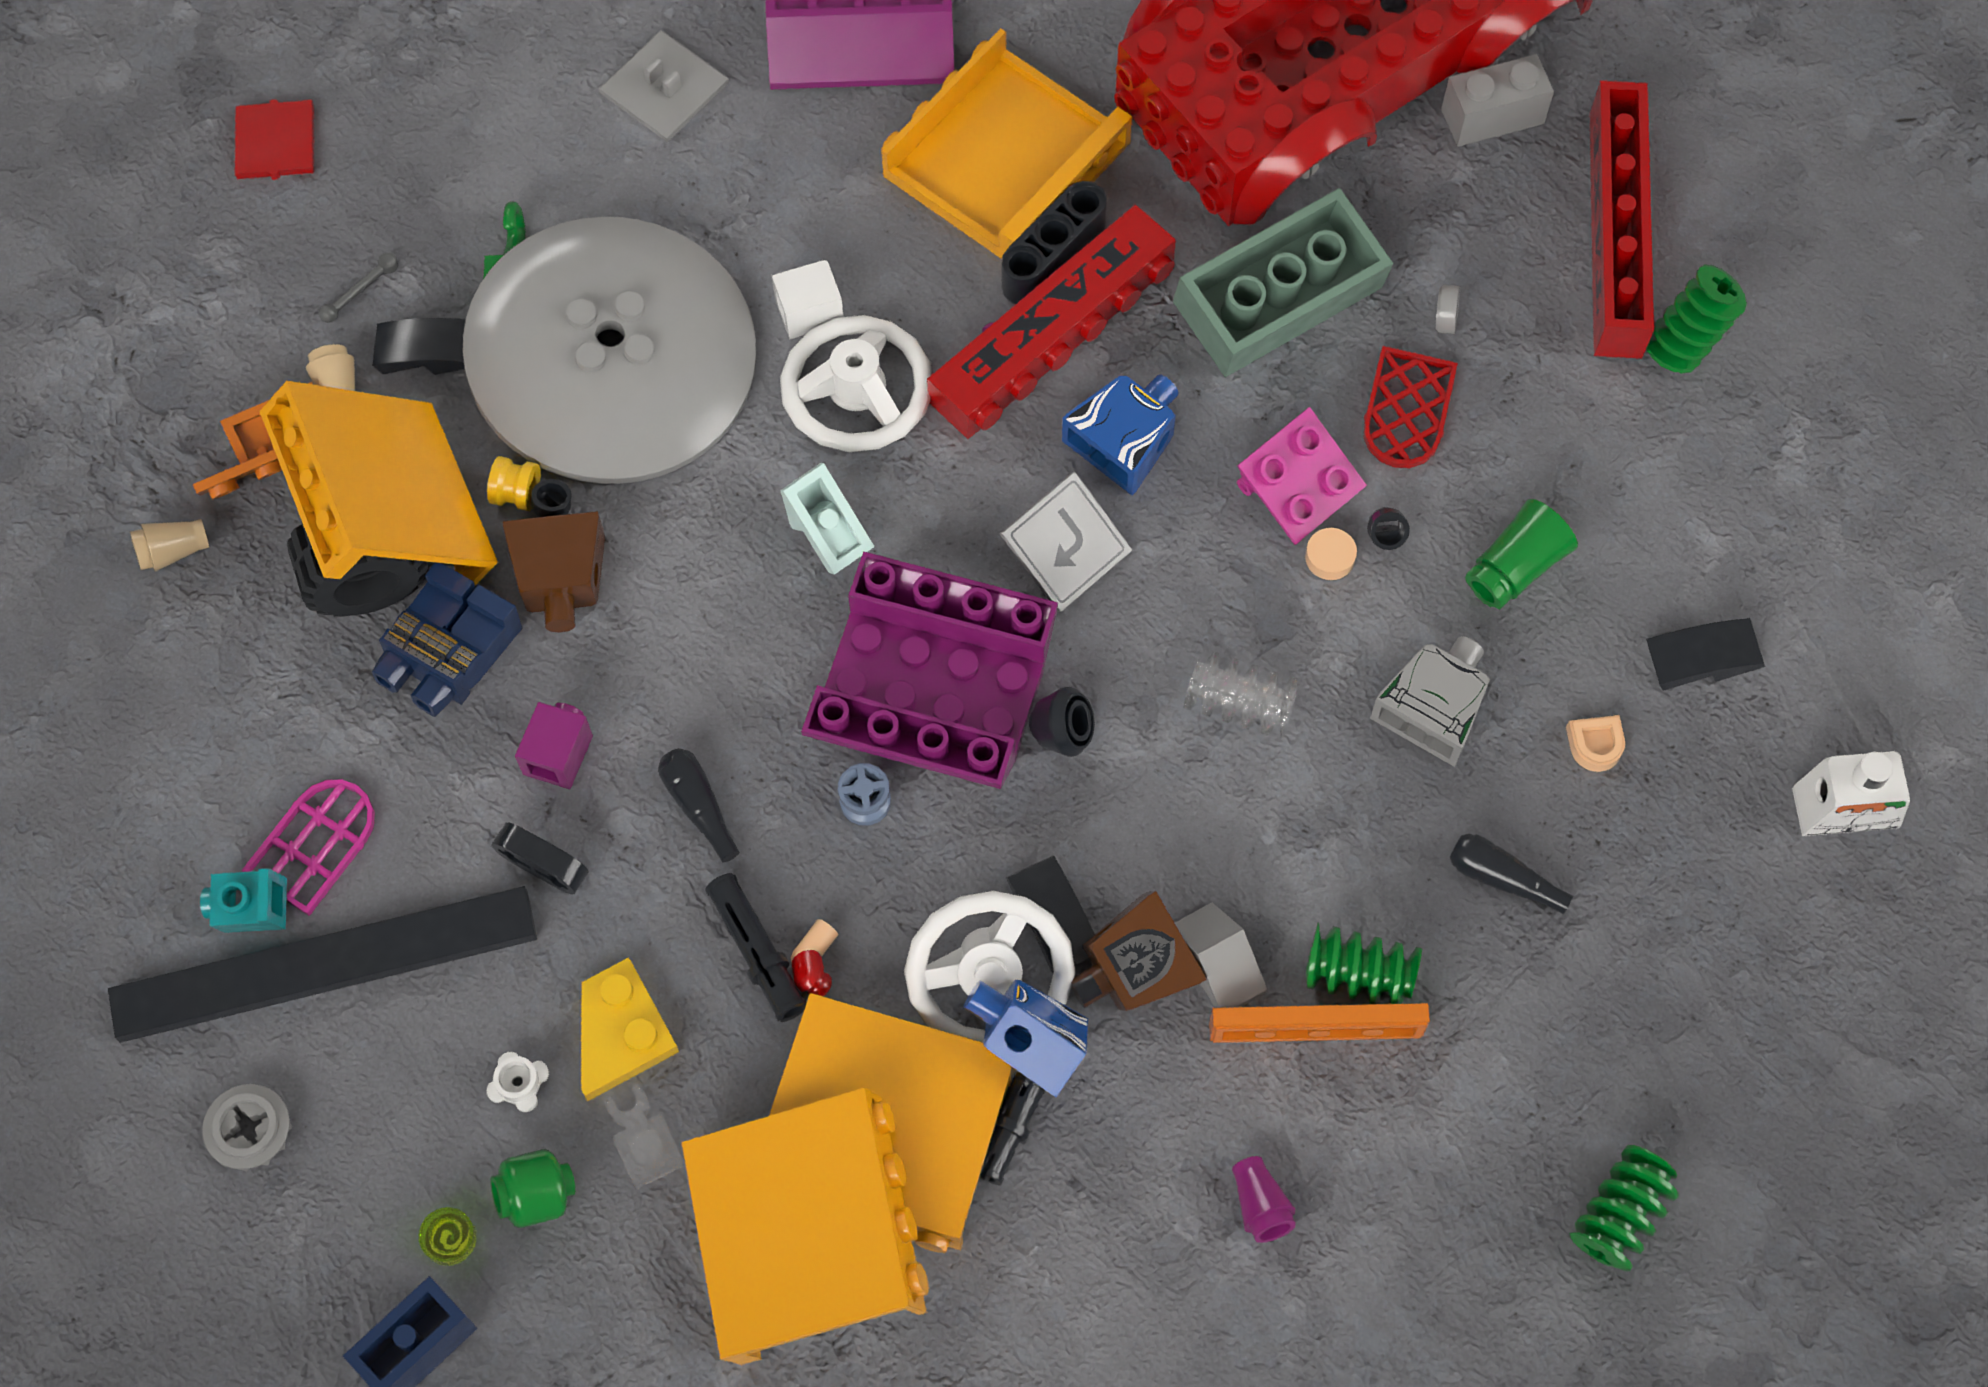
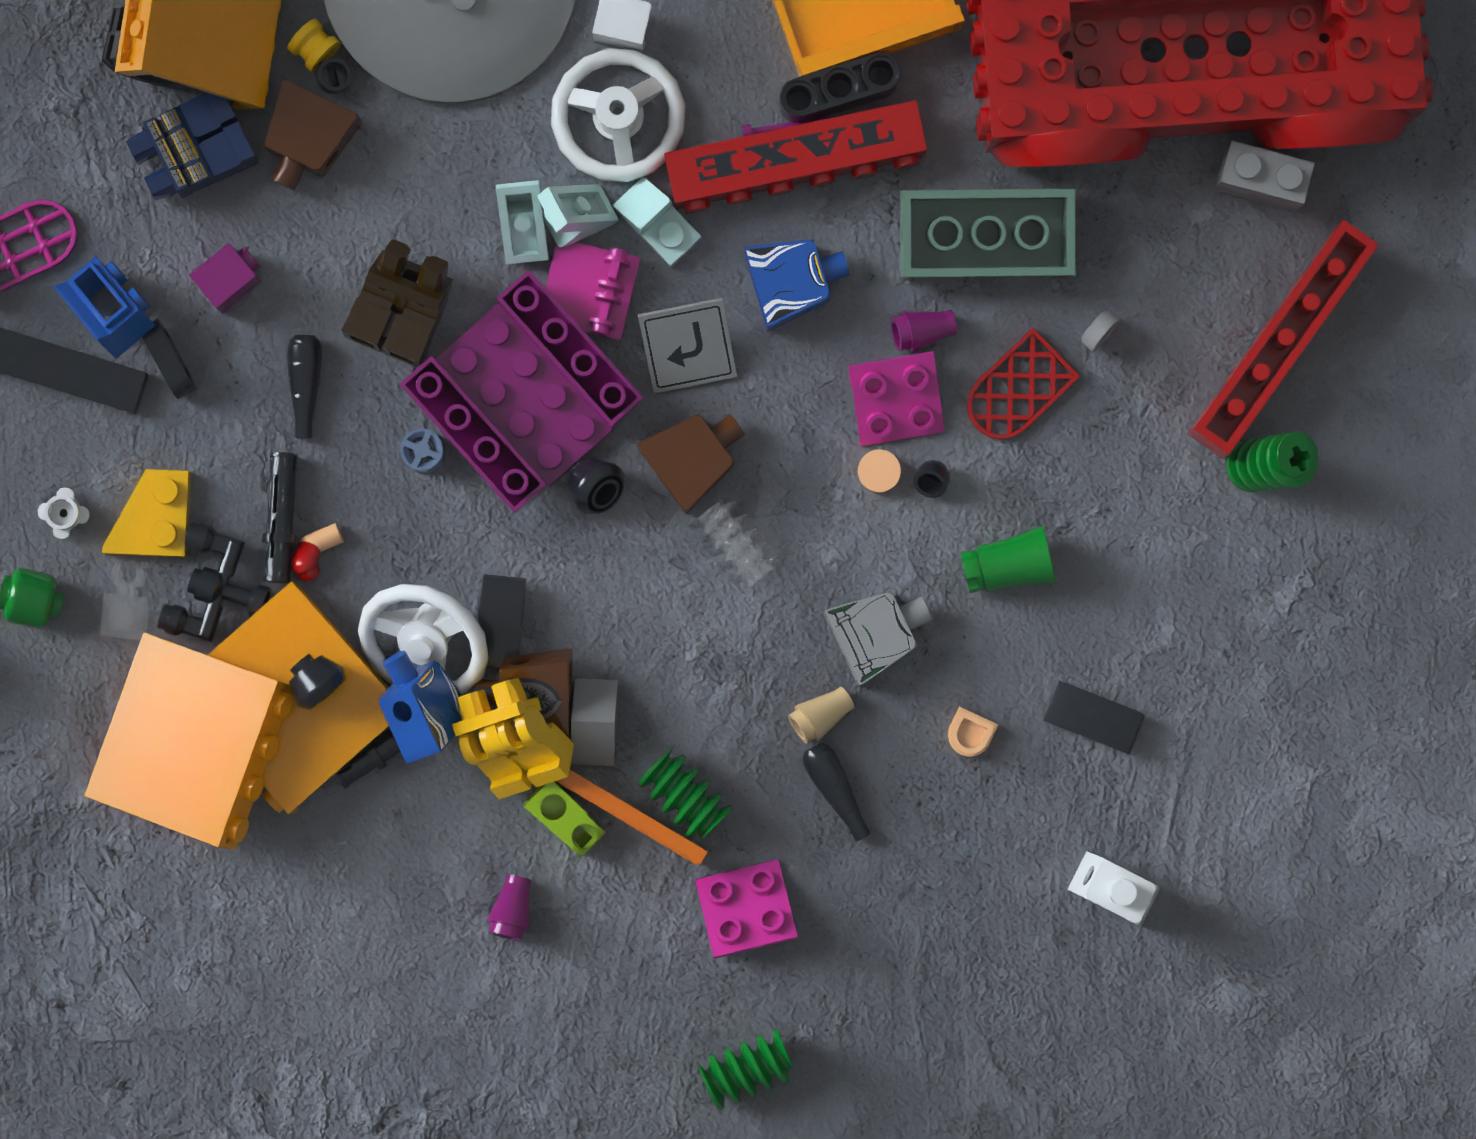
camera: 30 degrees right, 20 degrees up
(470, 850) = (125, 325): none -> blue window
(725, 1059) = (211, 586): none -> black piece
(759, 673) = (401, 287): none -> dark brown hips
(873, 486) = (576, 212): none -> light aqua slope
(902, 1069) = (315, 680): none -> black cone
(936, 538) = (594, 286): none -> dark pink hinge
(951, 454) = (657, 221): none -> light aqua slope
(1139, 643) = (691, 457): none -> reddish brown torso
(1149, 1009) = (512, 741): none -> yellow hips
(1251, 1067) = (564, 817): none -> lime leg
(1279, 403) = (921, 328): none -> magenta cone
(1439, 811) = (819, 715): none -> tan cone
(1505, 1048) = (746, 909): none -> dark pink hinge

